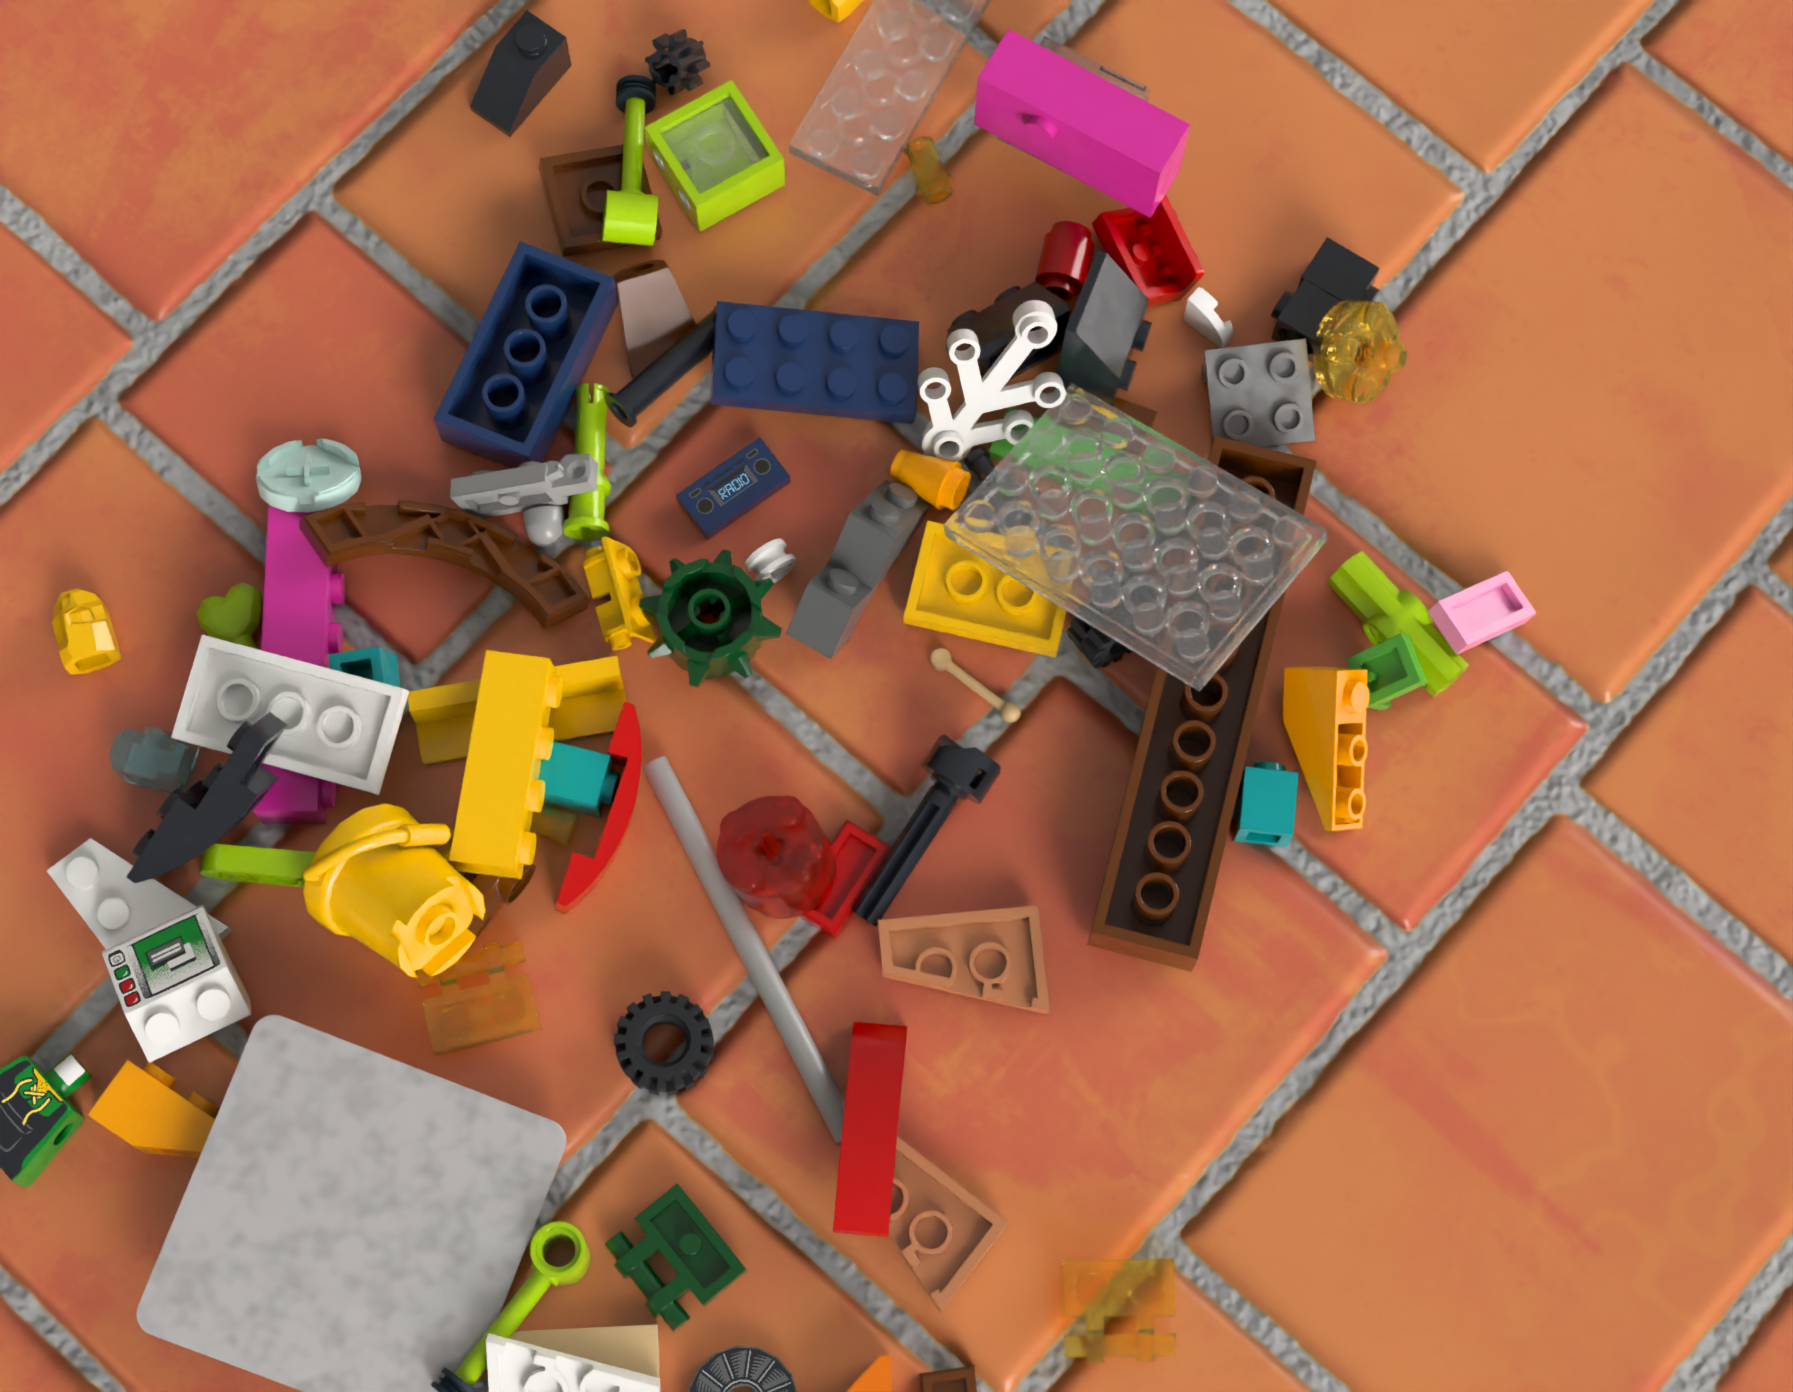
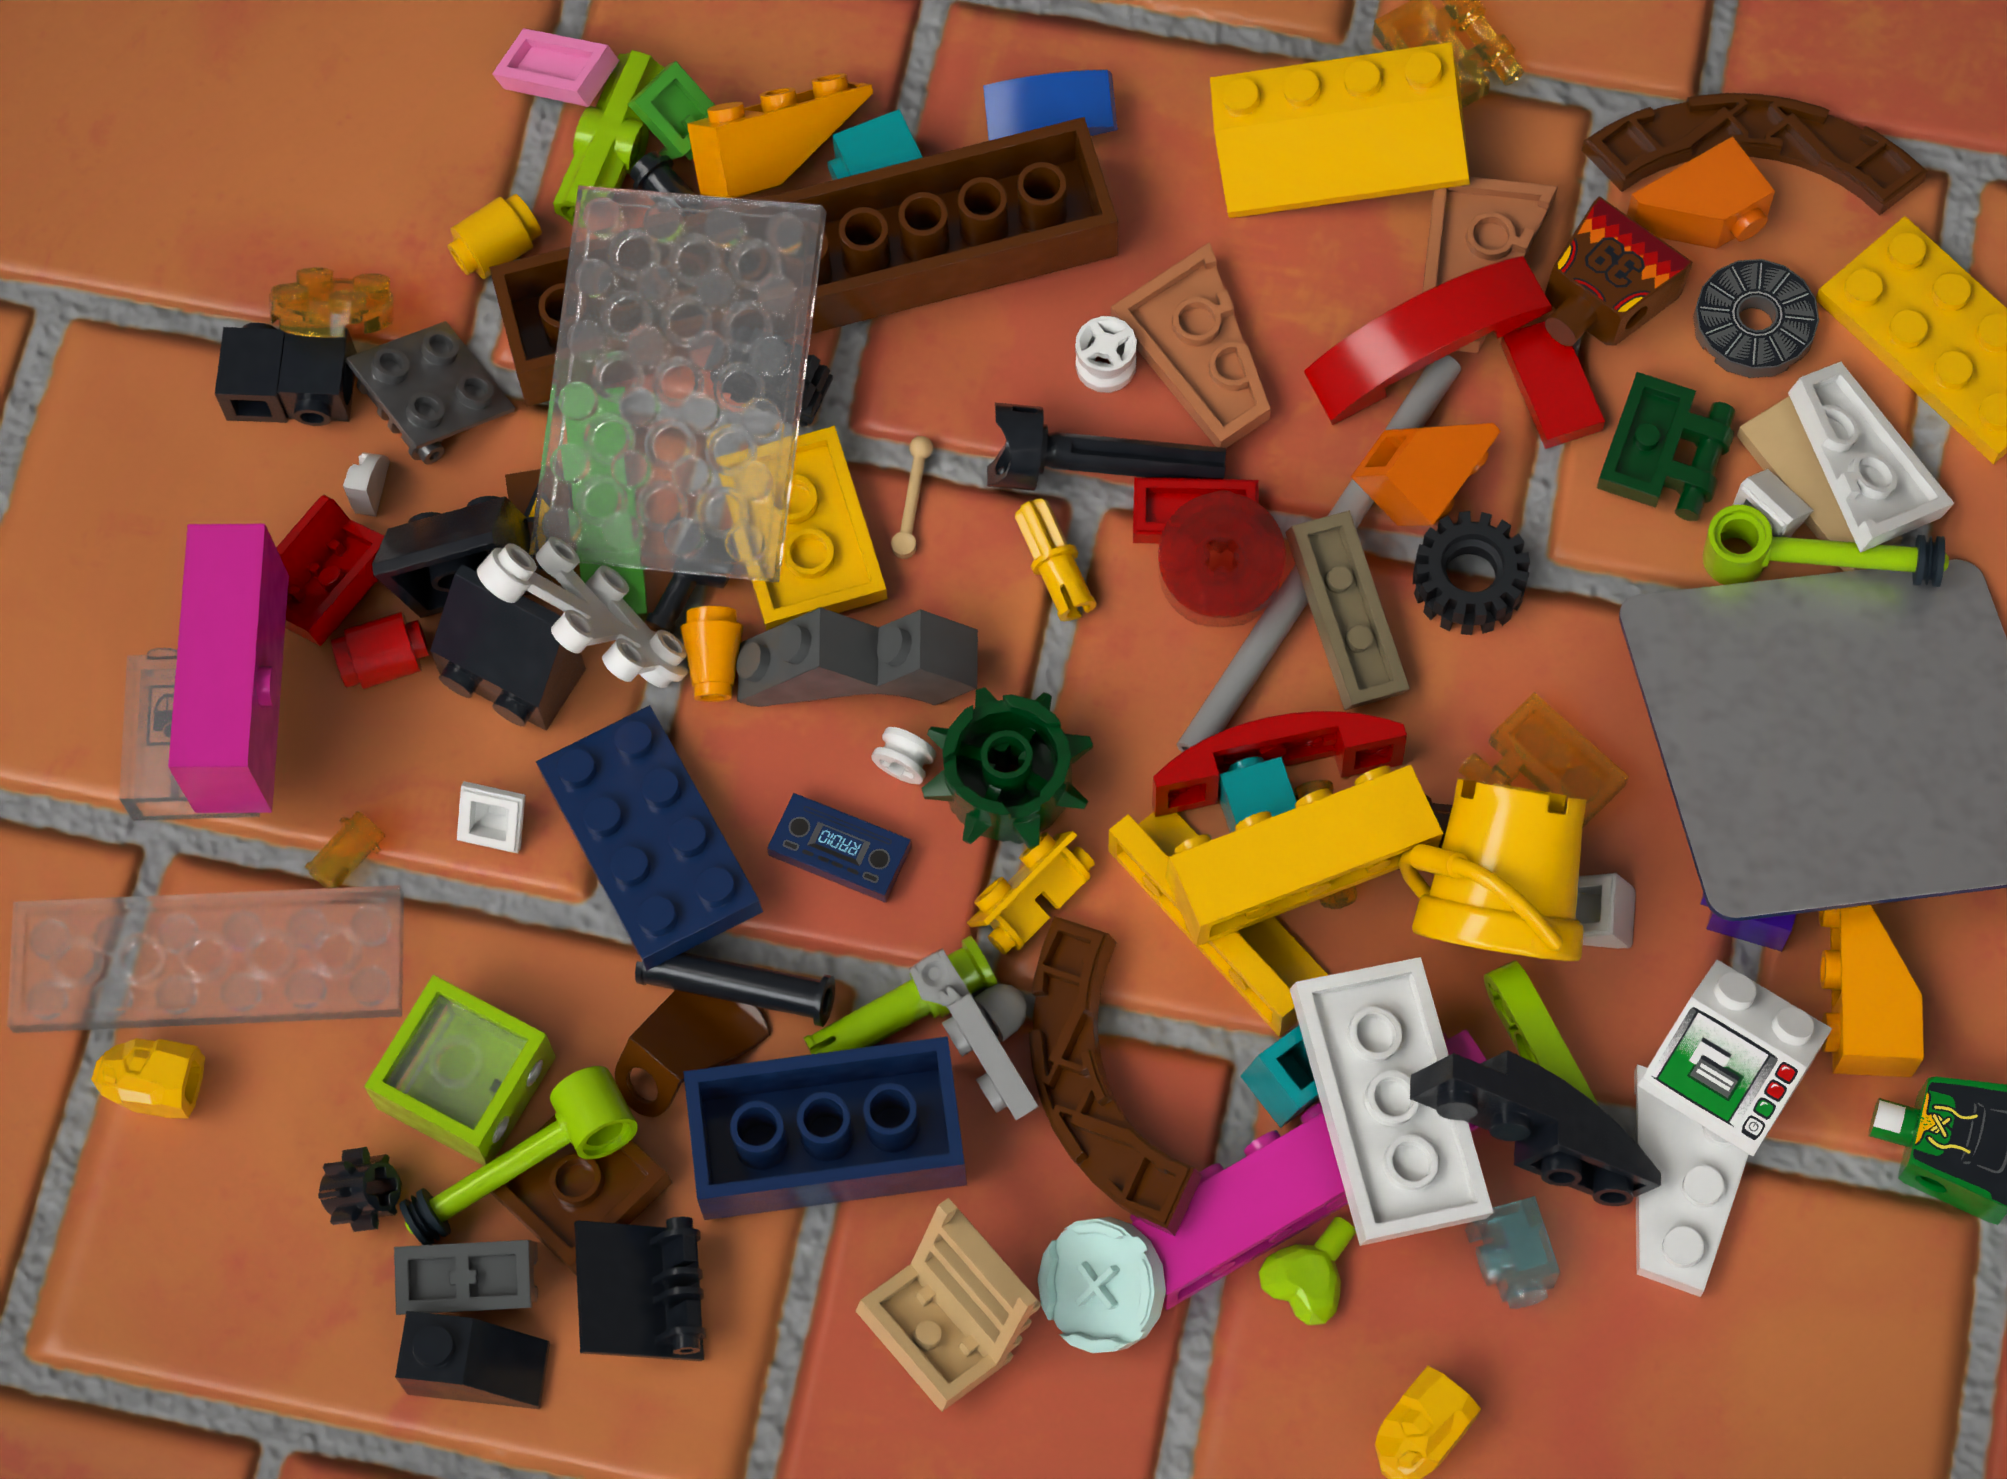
camera: 115 degrees left, 5 degrees down
(351, 364) = (951, 1309): none -> tan plate
(356, 976) = (1606, 910): none -> white slope
(496, 191) = (639, 1290): none -> black hinge
(576, 1304) = (1774, 500): none -> white slope
(577, 96) = (465, 1276): none -> dark grey hinge
(686, 928) = (1347, 610): none -> dark tan plate
(766, 1057) = (1422, 468): none -> orange slope
(782, 1208) = (1552, 385): none -> red tile
(837, 1298) = (1611, 278): none -> reddish brown torso
(859, 751) = (1054, 559): none -> yellow axle
(897, 274) = (490, 817): none -> white slope
(1004, 871) = (1111, 340): none -> white wheel
(1081, 1164) = (1340, 130): none -> yellow slope
(1240, 962) = (1051, 99): none -> blue slope
(1332, 643) = (656, 175): none -> black pin
(1359, 498) = (493, 235): none -> yellow brick

